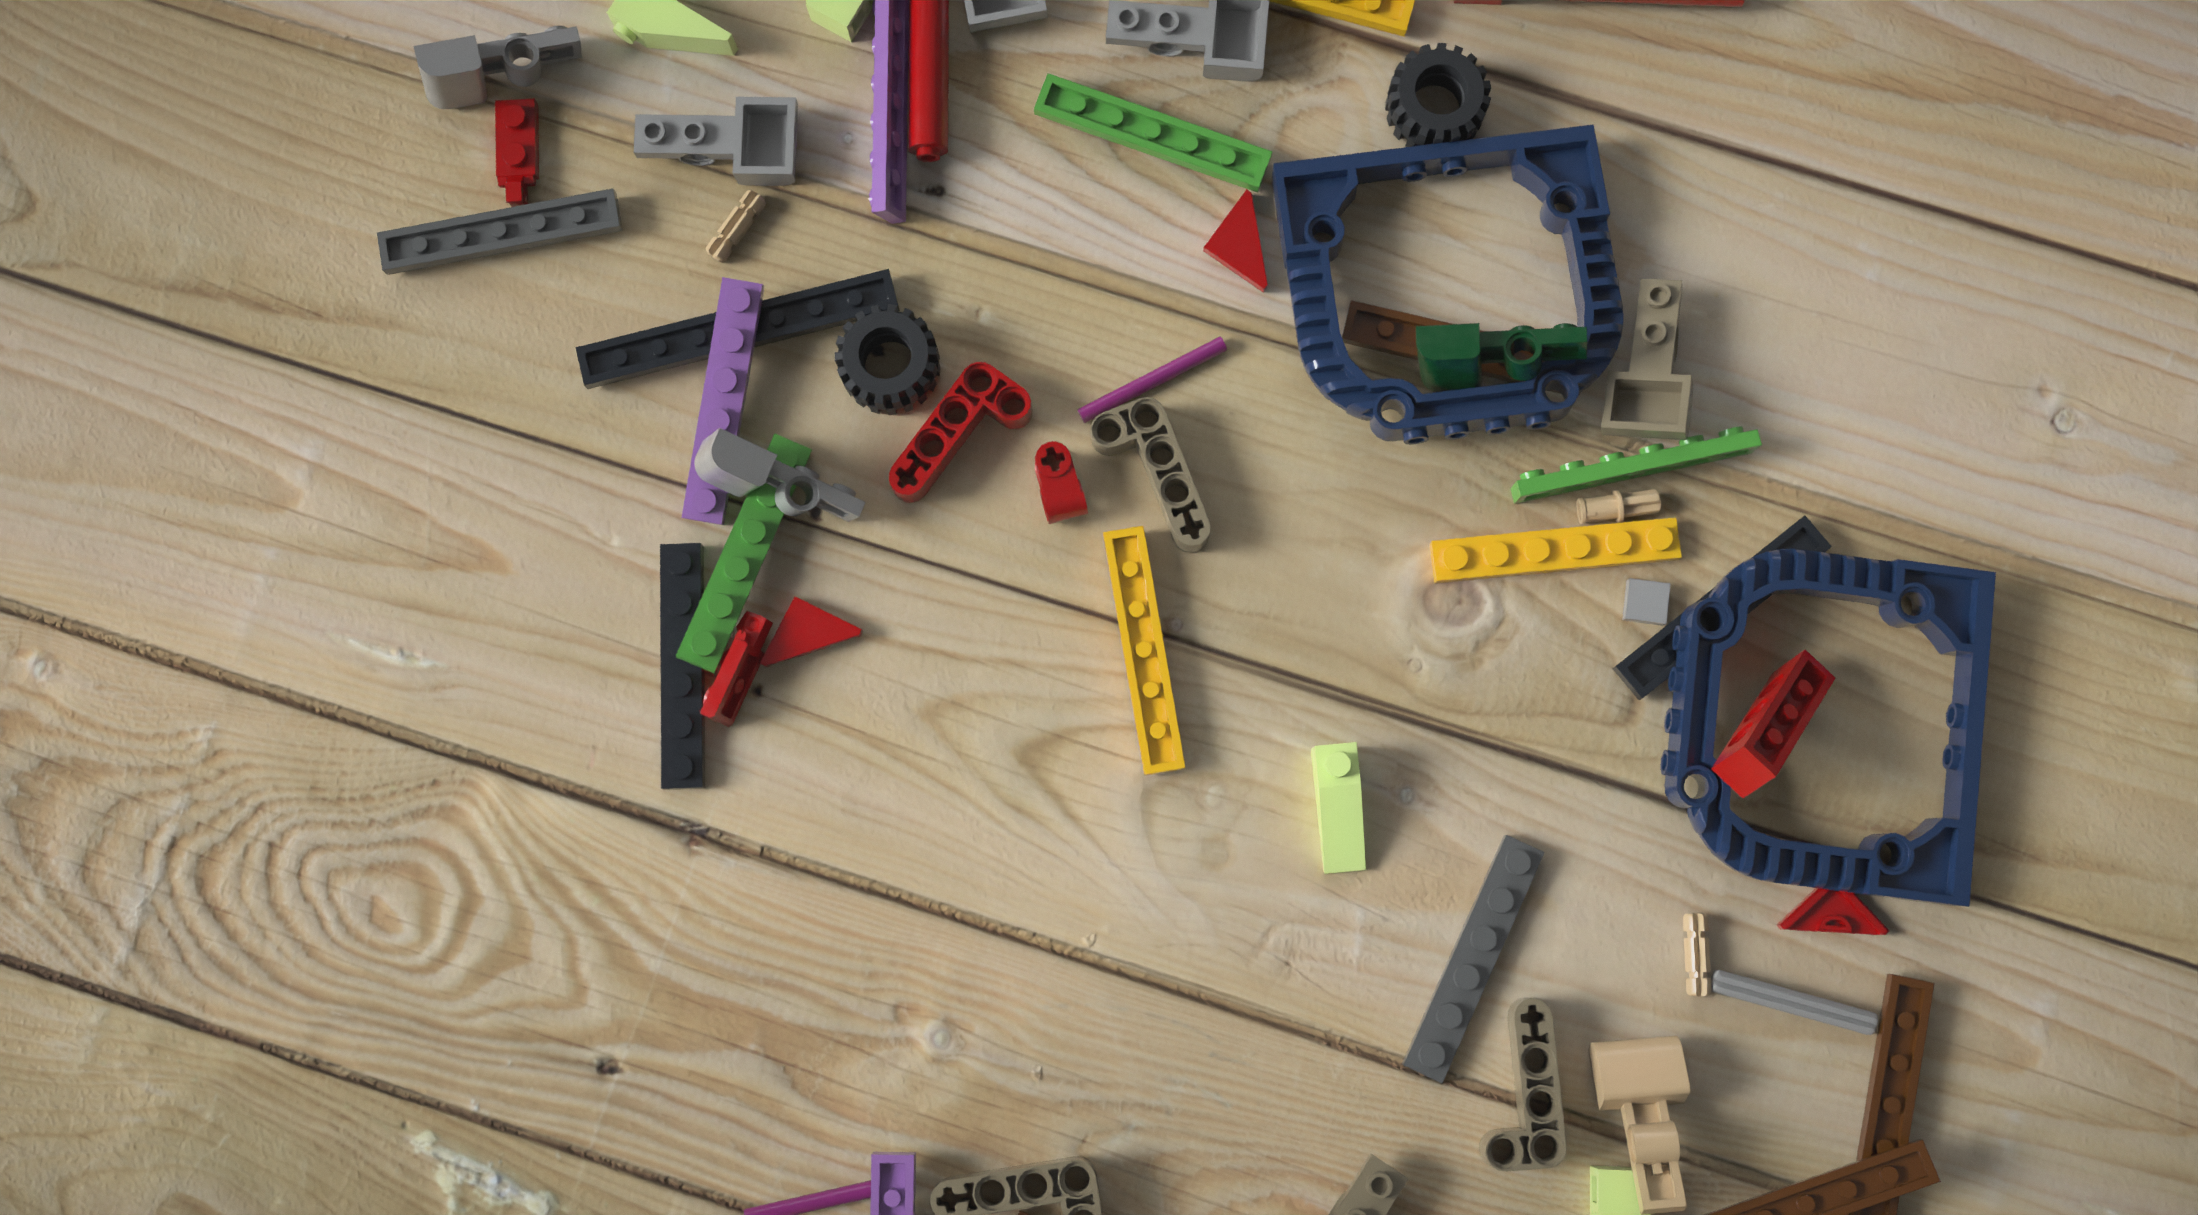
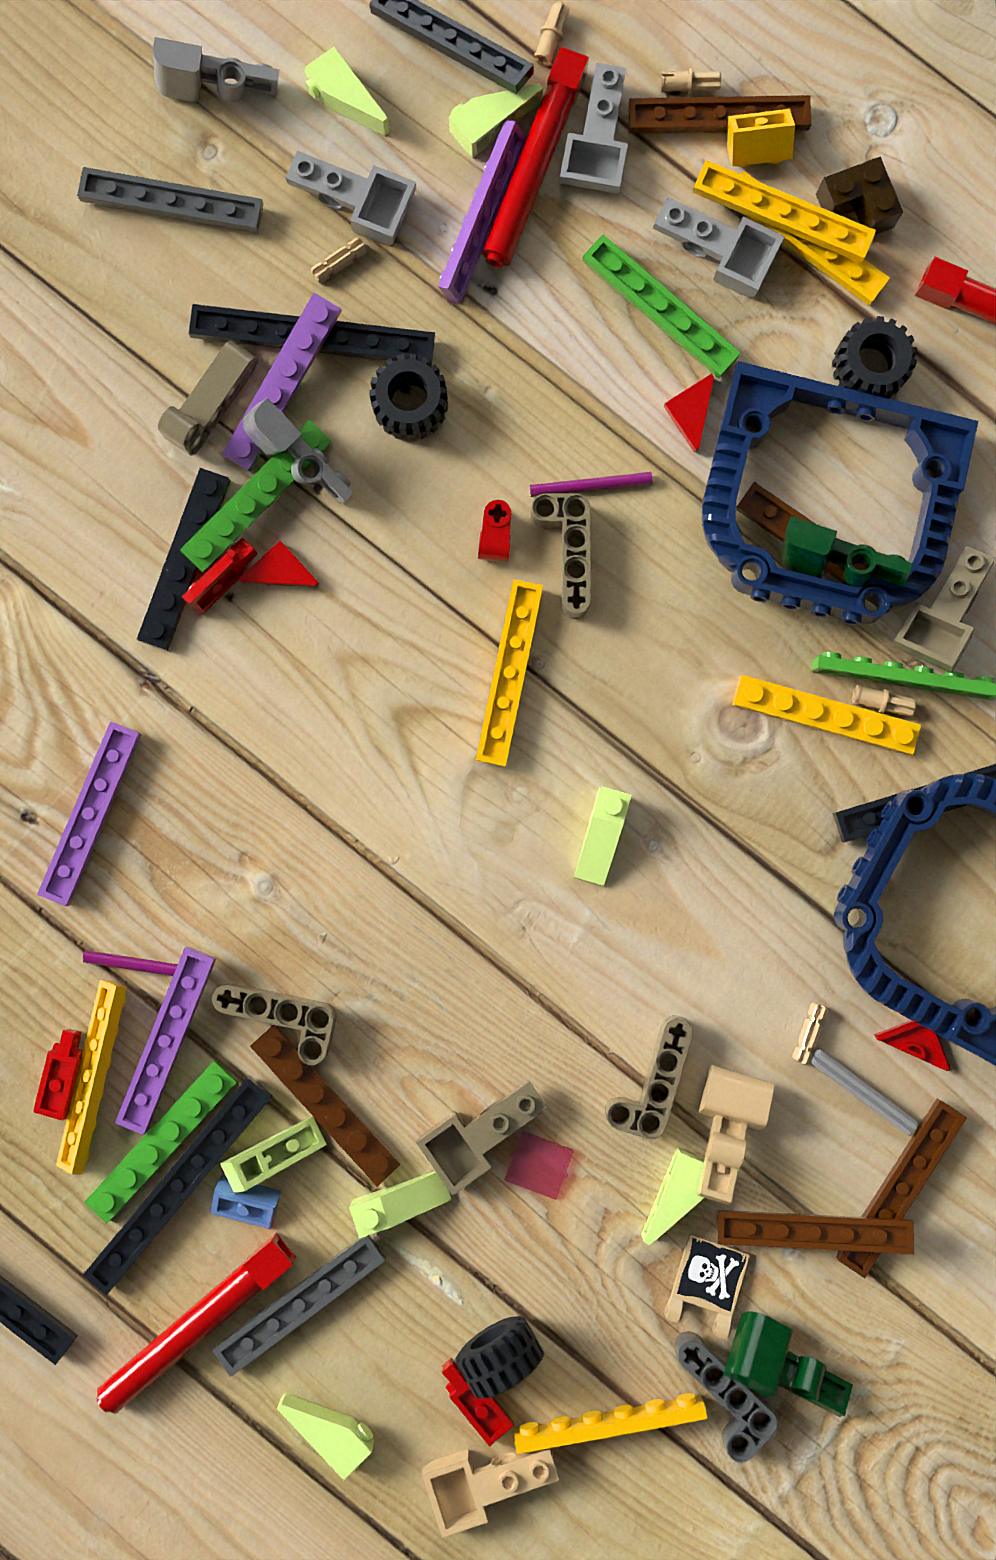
camera: 15 degrees right, 5 degrees up
(517, 147) = (205, 144): red hinge -> none
(640, 457) = (209, 400): none -> dark tan beam
(684, 1033) = (89, 814): none -> medium lavender plate
(955, 435) = (435, 470): red beam -> none
(1473, 958) = (653, 975): dark grey plate -> none
(1646, 602) = (875, 776): light grey tile -> none
(1773, 724) = (929, 896): red brick -> none

